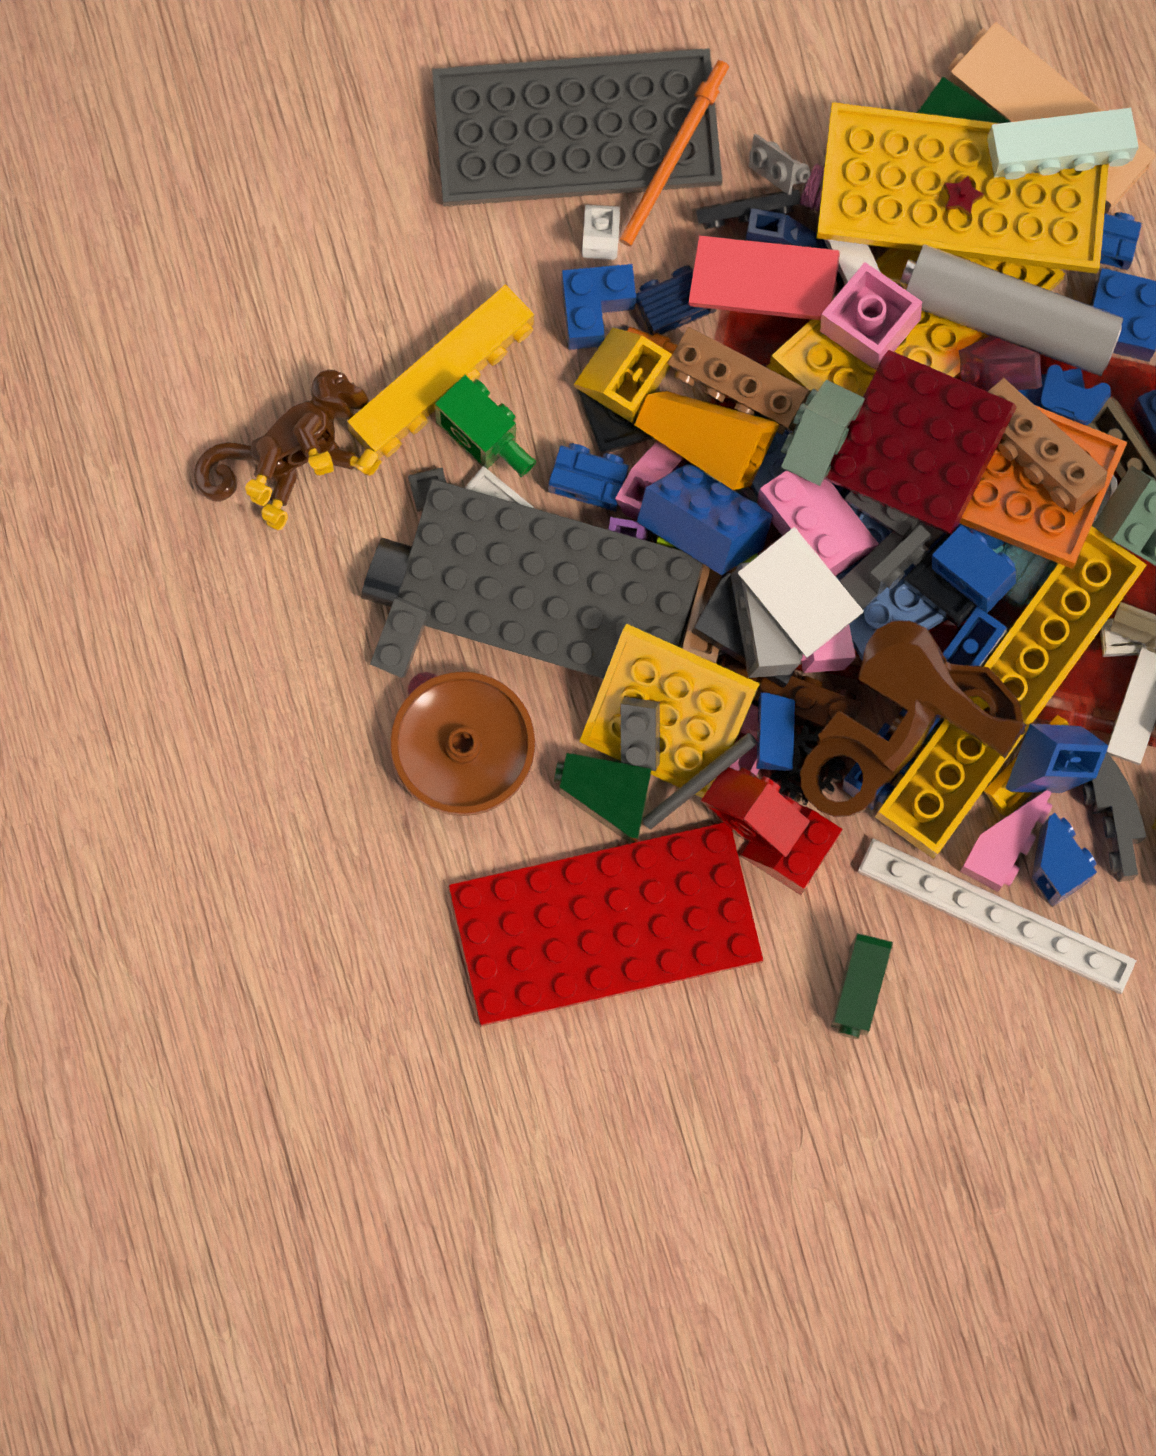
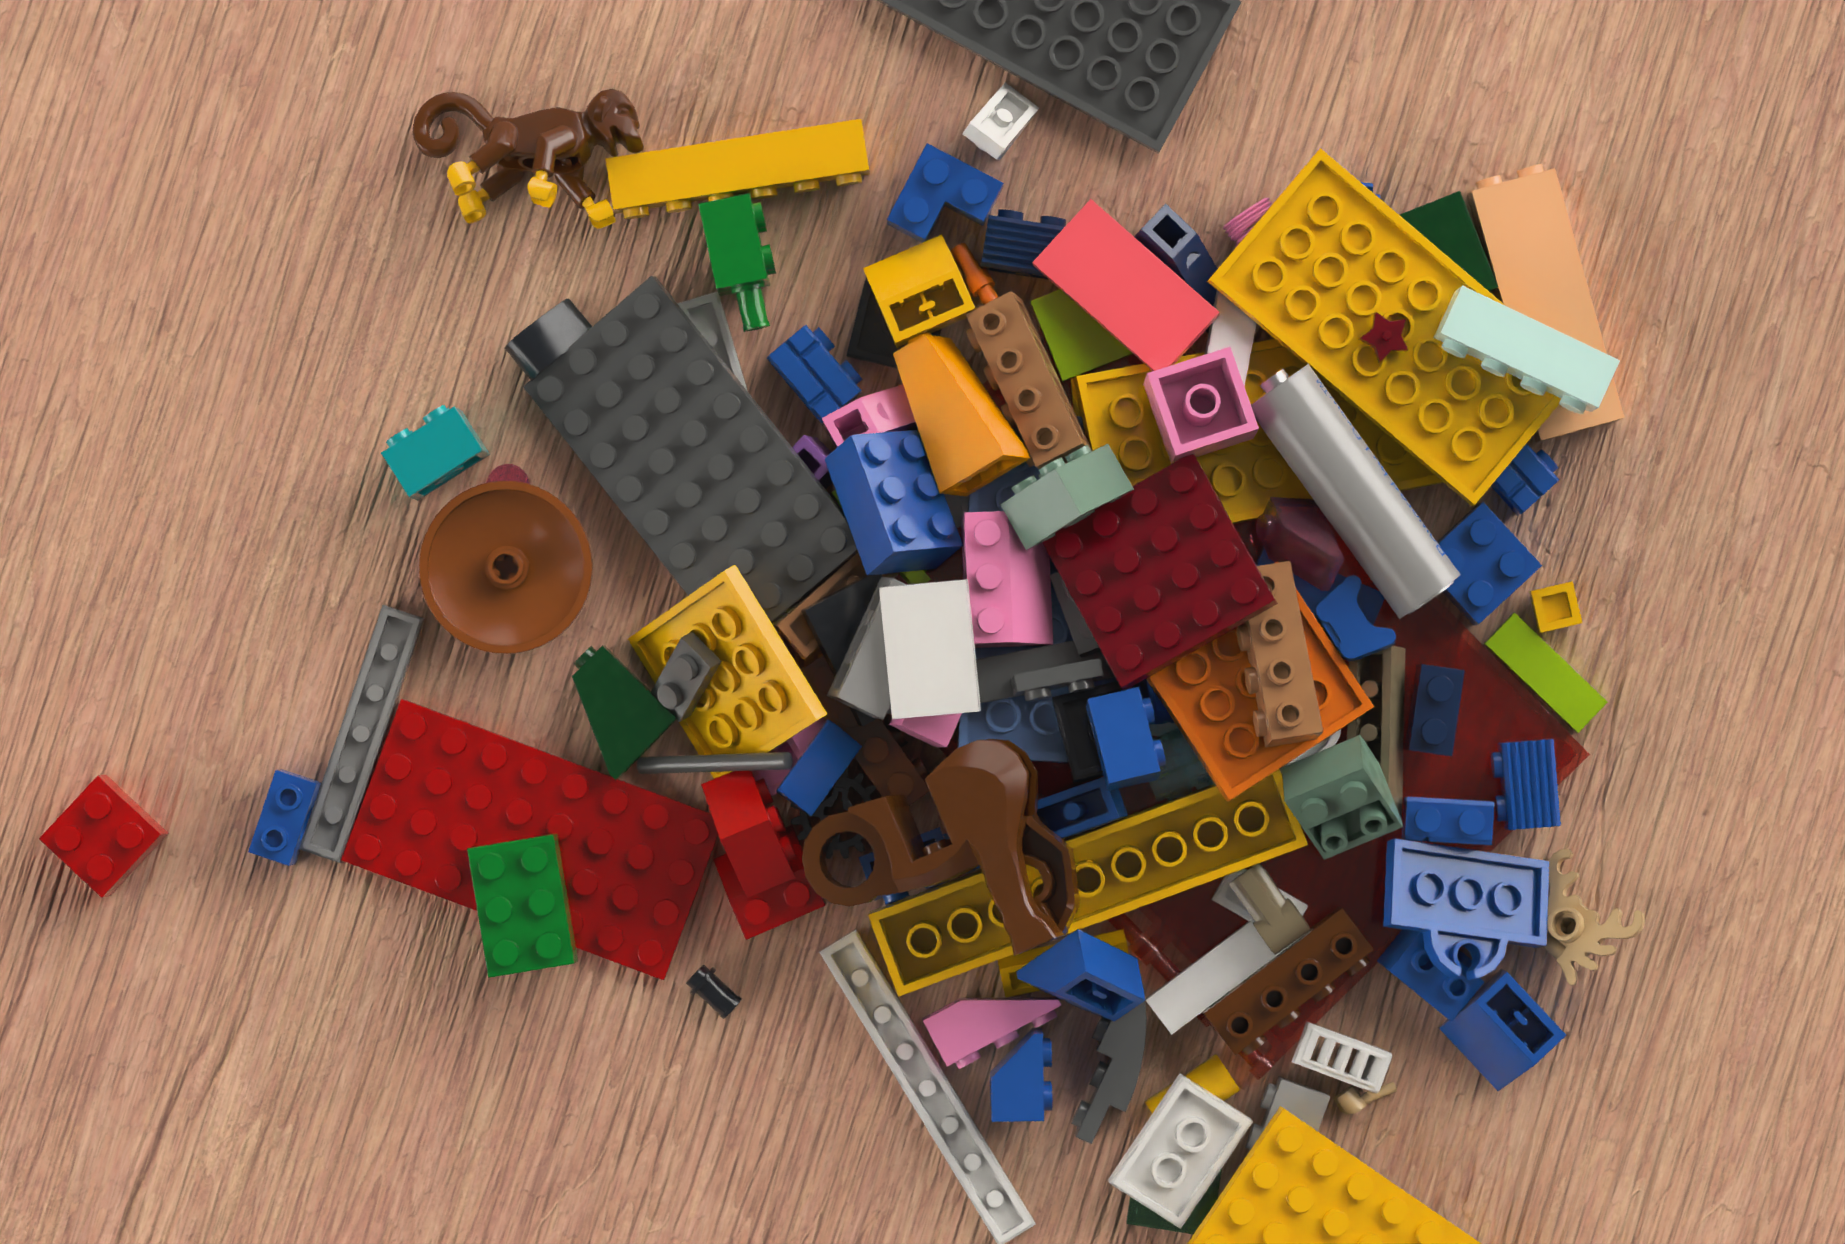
camera: 40 degrees right, 10 degrees up
(301, 1116) = (103, 836): none -> red brick
(361, 695) = (434, 452): none -> teal brick
(400, 637) = (515, 416): dark grey plate -> none
(421, 483) = (642, 268): dark grey tile -> none
(422, 1018) = (284, 817): none -> blue brick
(436, 929) = (362, 733): none -> light grey tile
(632, 966) = (522, 905): none -> green brick
(705, 96) = (1202, 50): orange bar -> none
(714, 215) = (1201, 209): black plate -> none
(751, 333) = (1074, 336): none -> lime tile
(777, 165) = (1225, 172): light grey hinge -> none
(803, 945) = (713, 991): none -> black pin
(861, 985) = (740, 1072): dark green slope -> none

